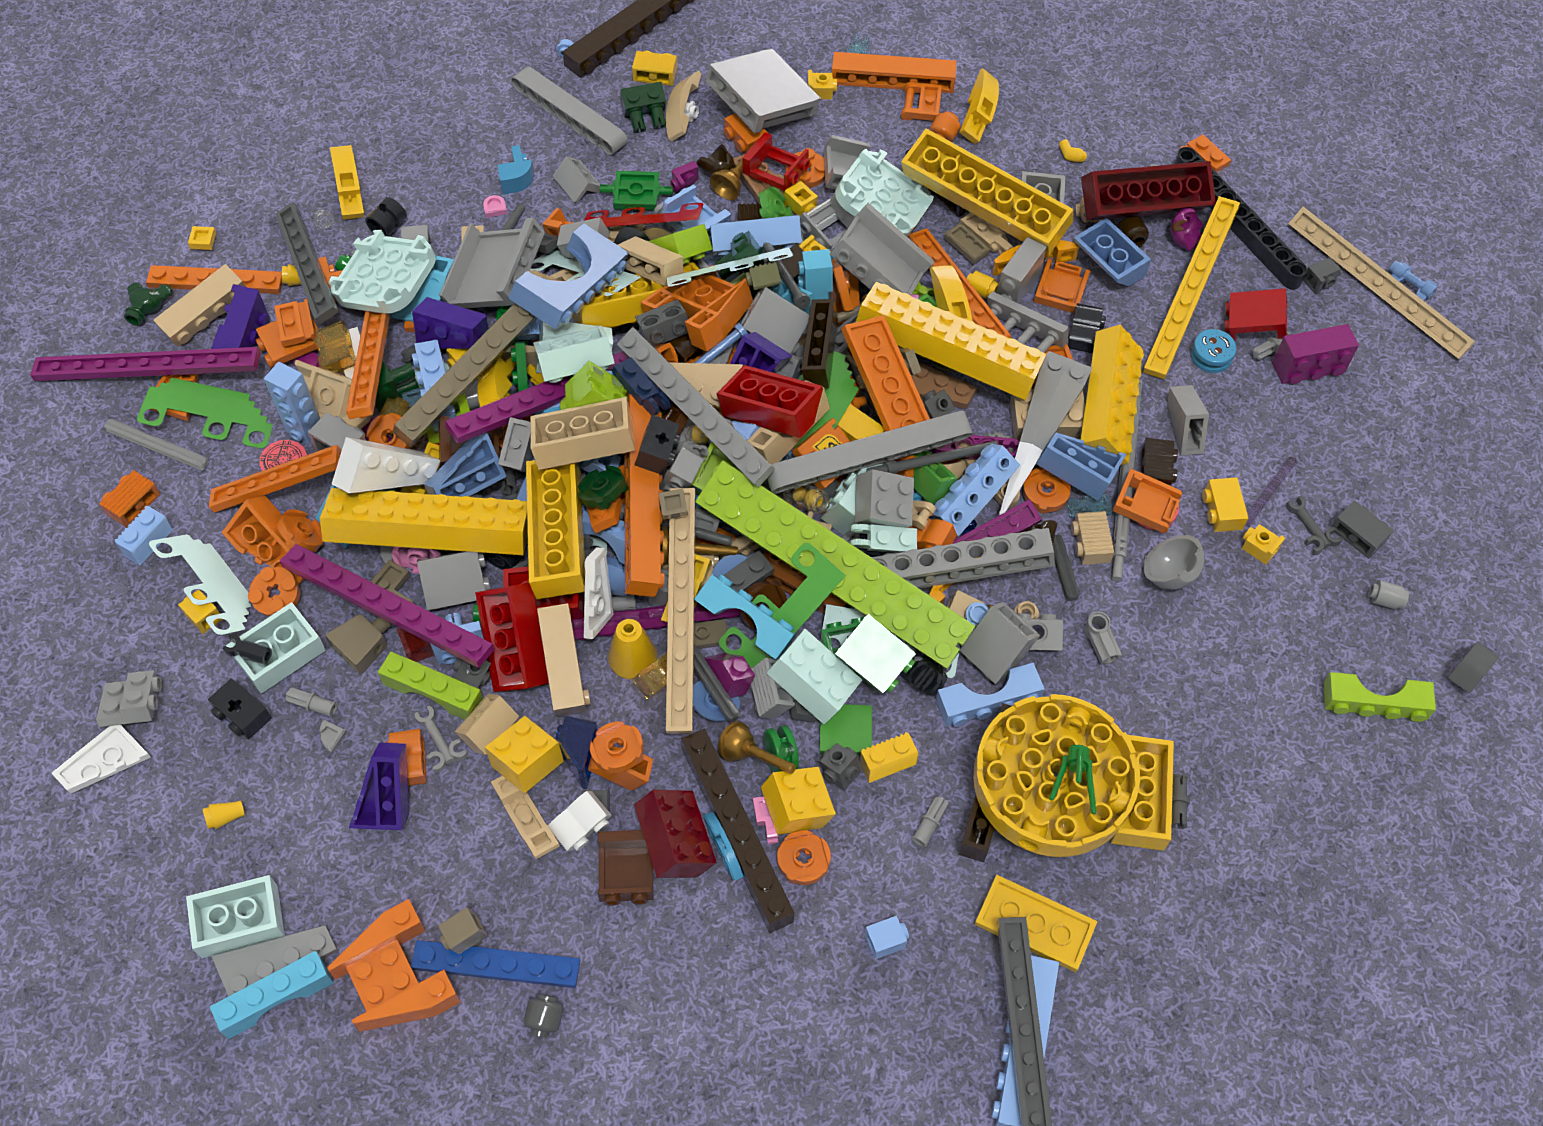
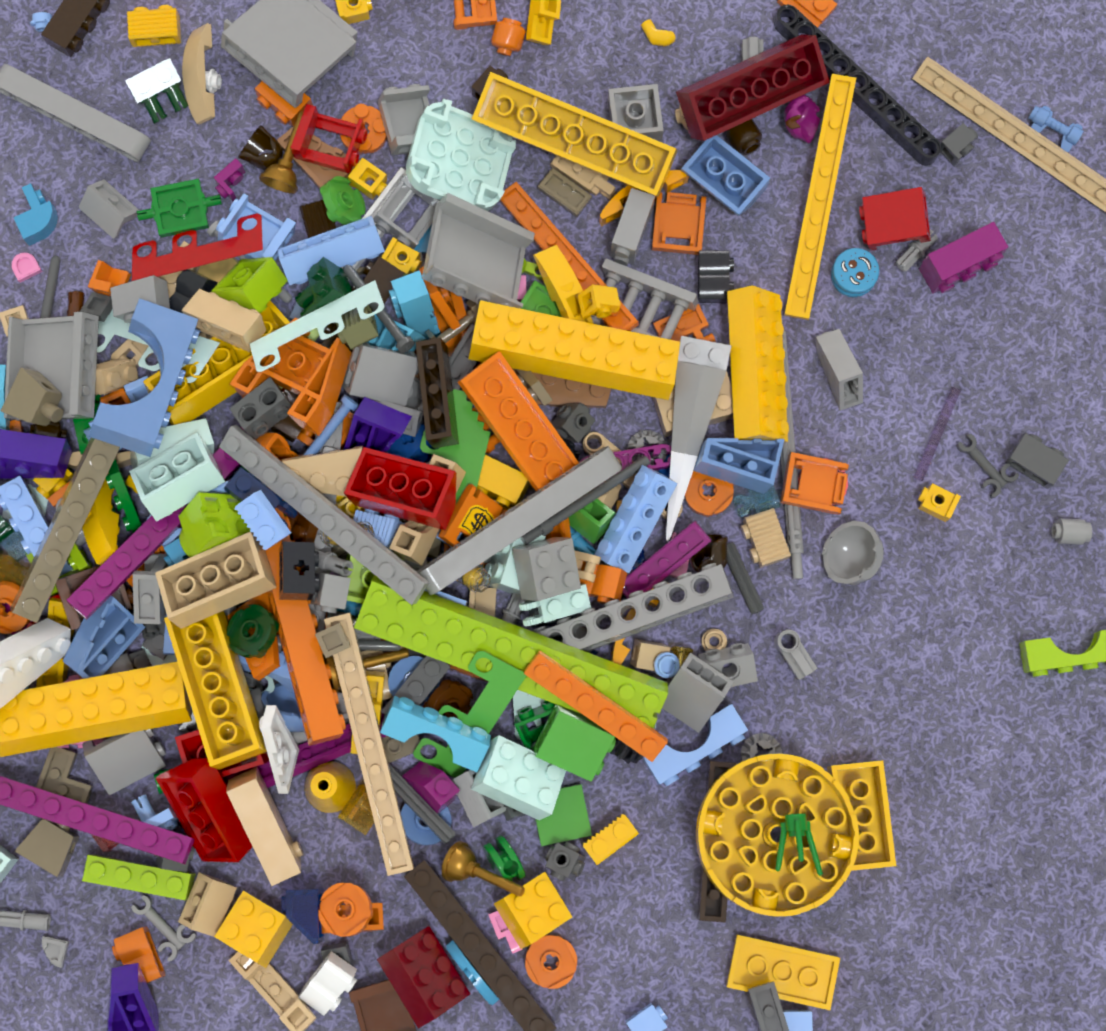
camera: 15 degrees left, 20 degrees up
(467, 283) = (33, 399): none -> dark tan torso
(638, 393) = (262, 520): none -> light blue brick
(904, 620) = (595, 706): none -> orange plate
(930, 821) = (664, 892): light grey axle -> none
(980, 308) = (598, 301): none -> yellow brick
(983, 283) = (592, 246): yellow brick -> none
(1158, 460) = (818, 431): dark brown brick -> none
(1179, 801) = (897, 811): dark grey pin -> none
(1225, 504) = (894, 465): yellow brick -> none

